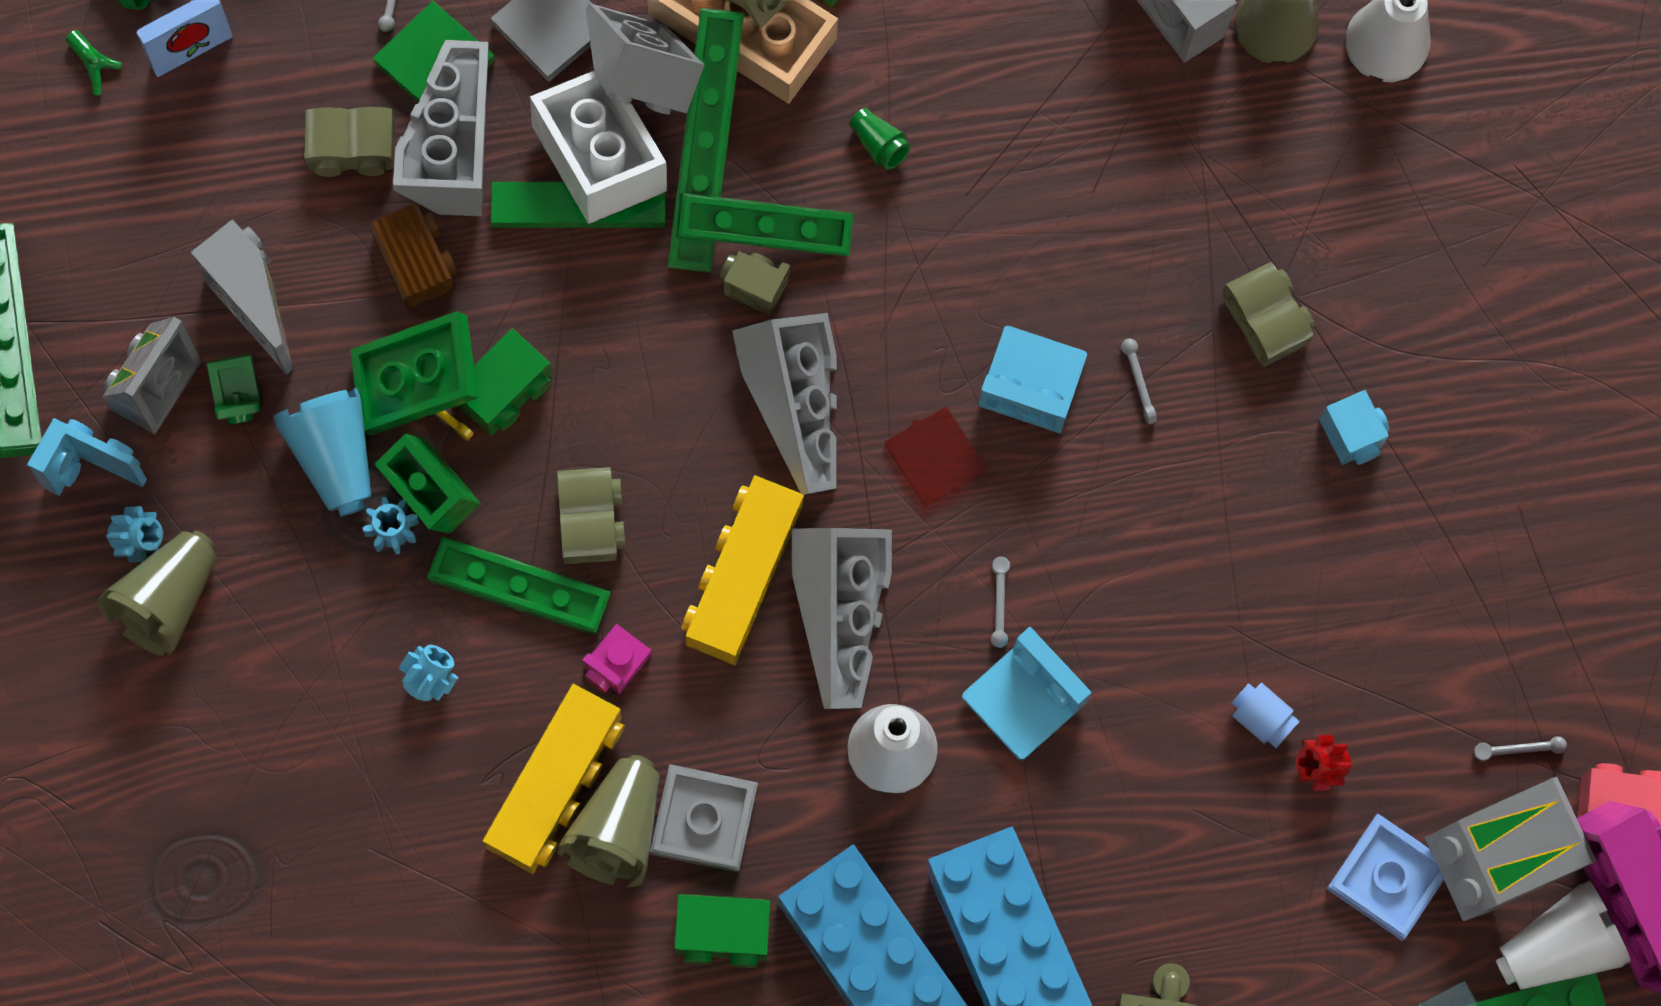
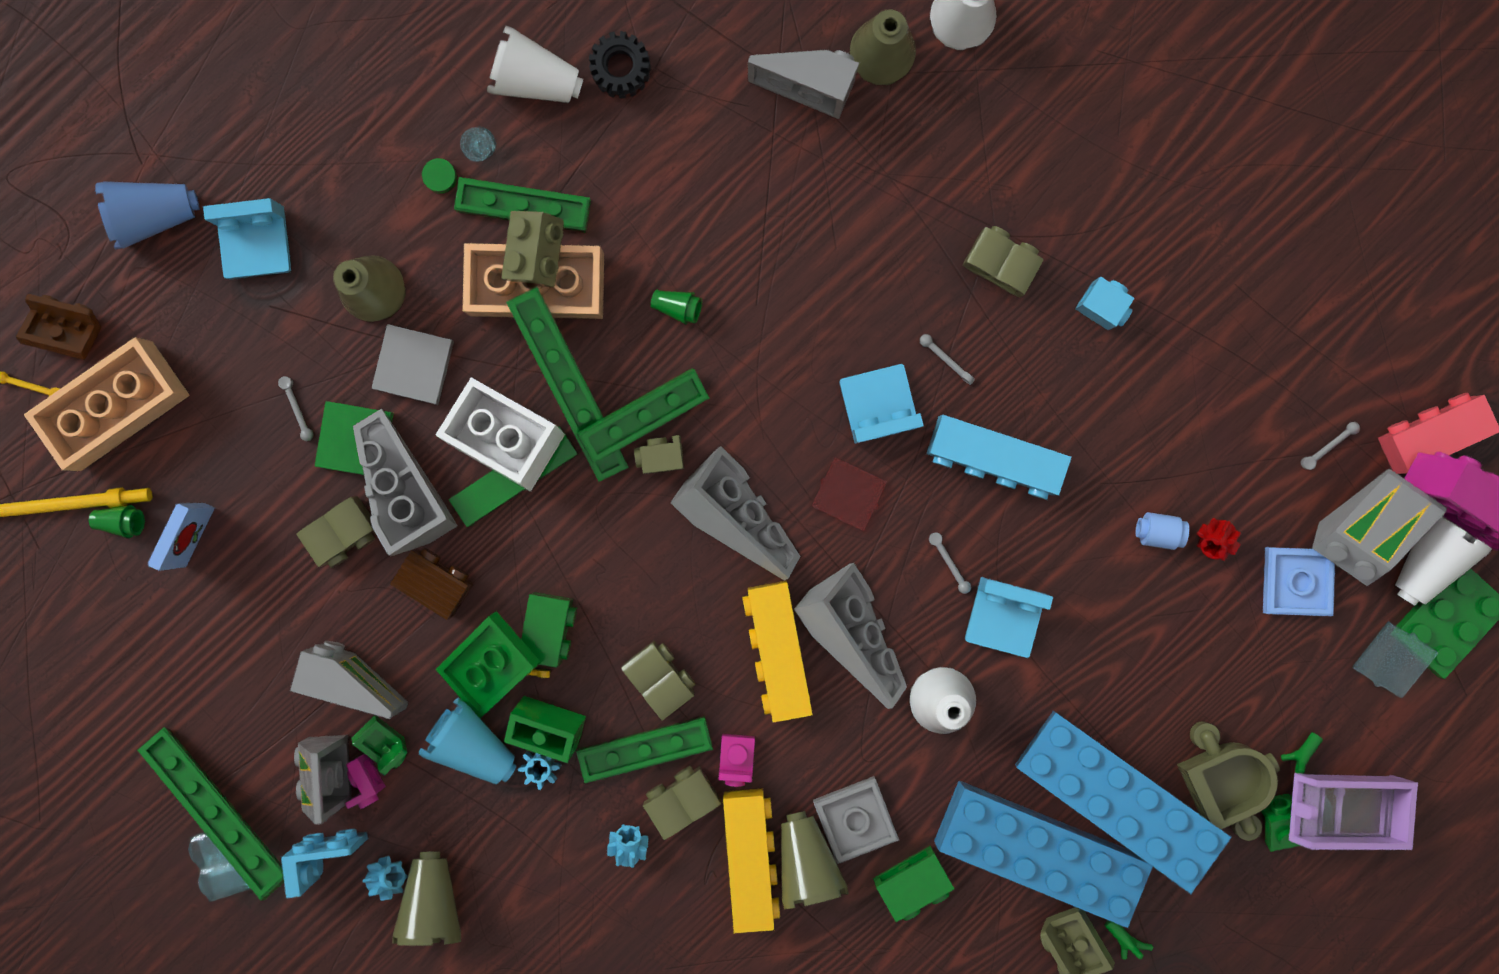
camera: 25 degrees left, 15 degrees up
(91, 58) = (134, 584): green bar -> none
(191, 411) = (366, 778): none -> dark pink bracket
(521, 664) = (681, 802): none -> olive brick
(641, 60) = (489, 360): light grey slope -> none
(1128, 512) = (998, 456): none -> medium azure brick

